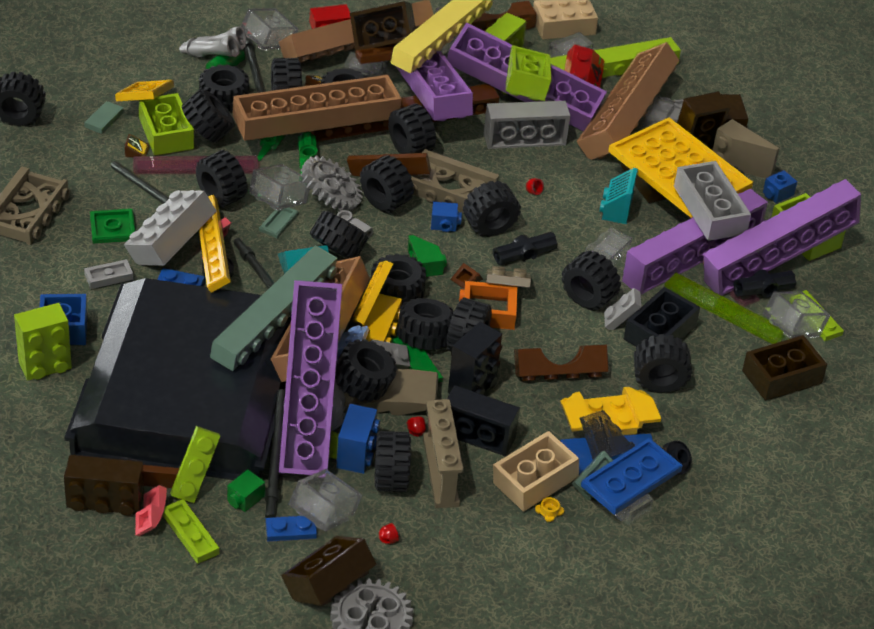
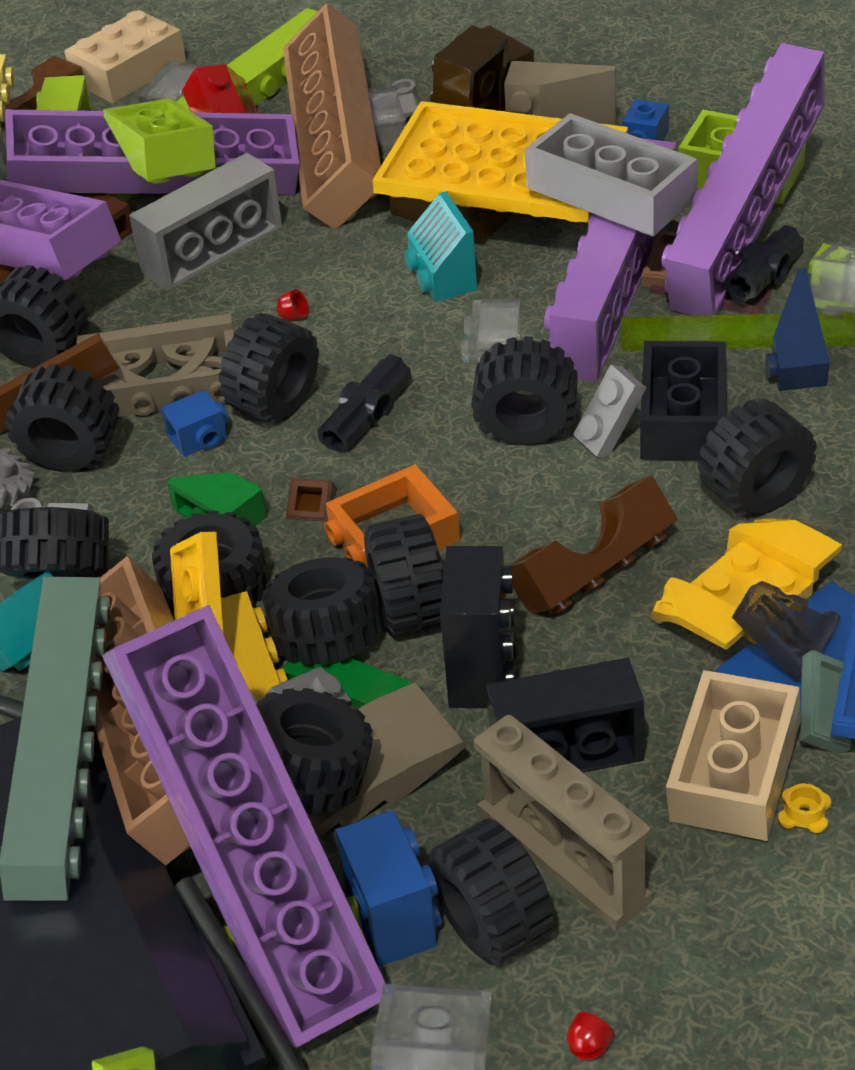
camera: 25 degrees left, 0 degrees up
(416, 426) = (455, 799): red hinge -> none
(517, 277) = (395, 456): dark tan plate -> none
(740, 325) = (798, 344): none -> dark blue slope

